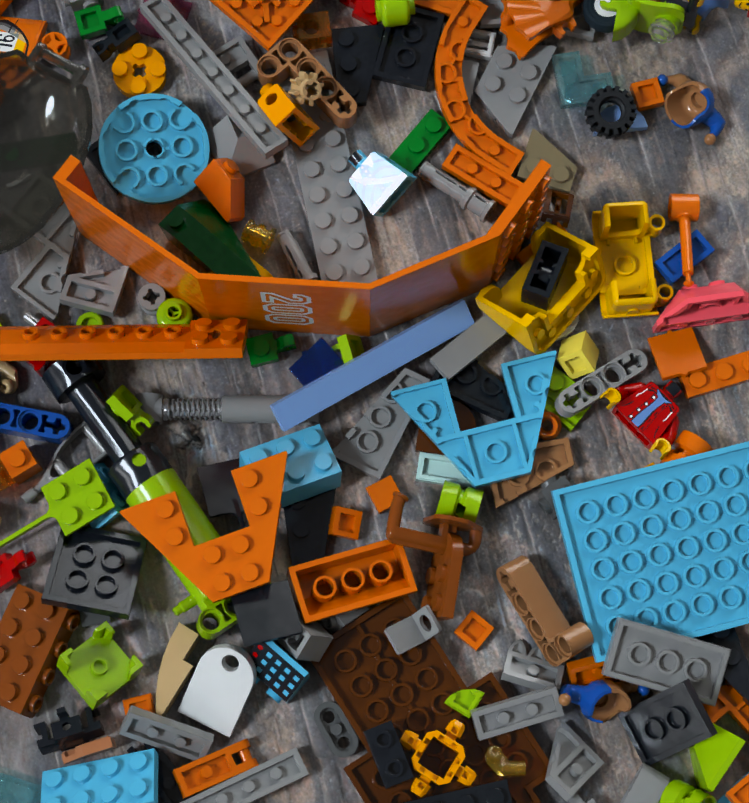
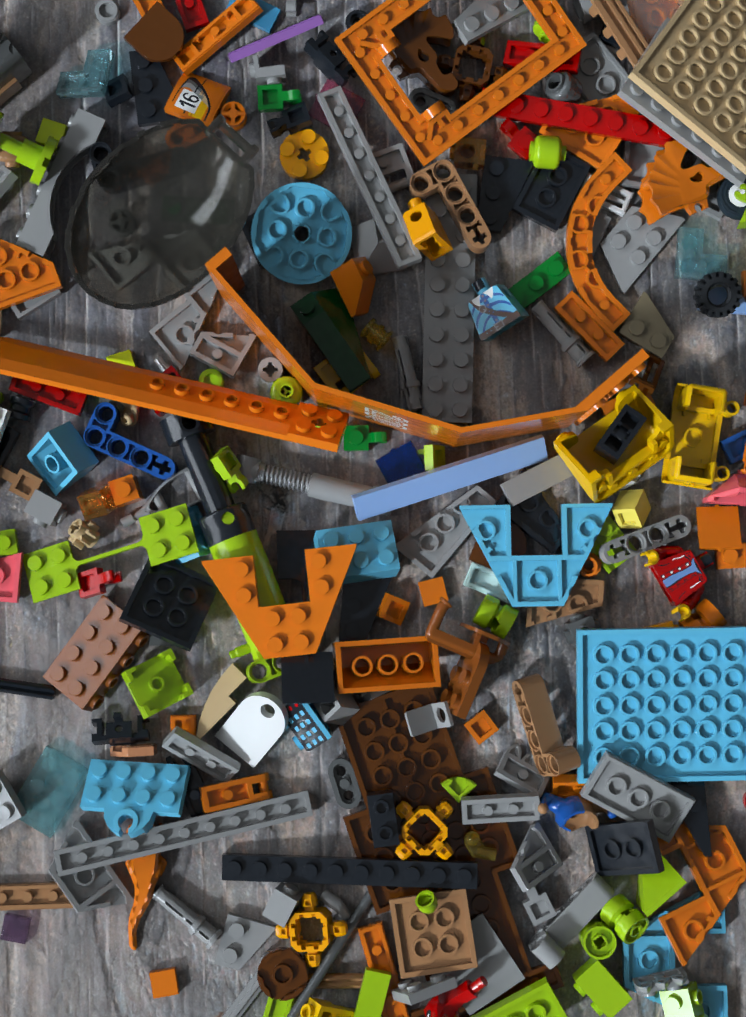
camera: 15 degrees right, 10 degrees up
(298, 88) = (449, 214): tan gear -> none

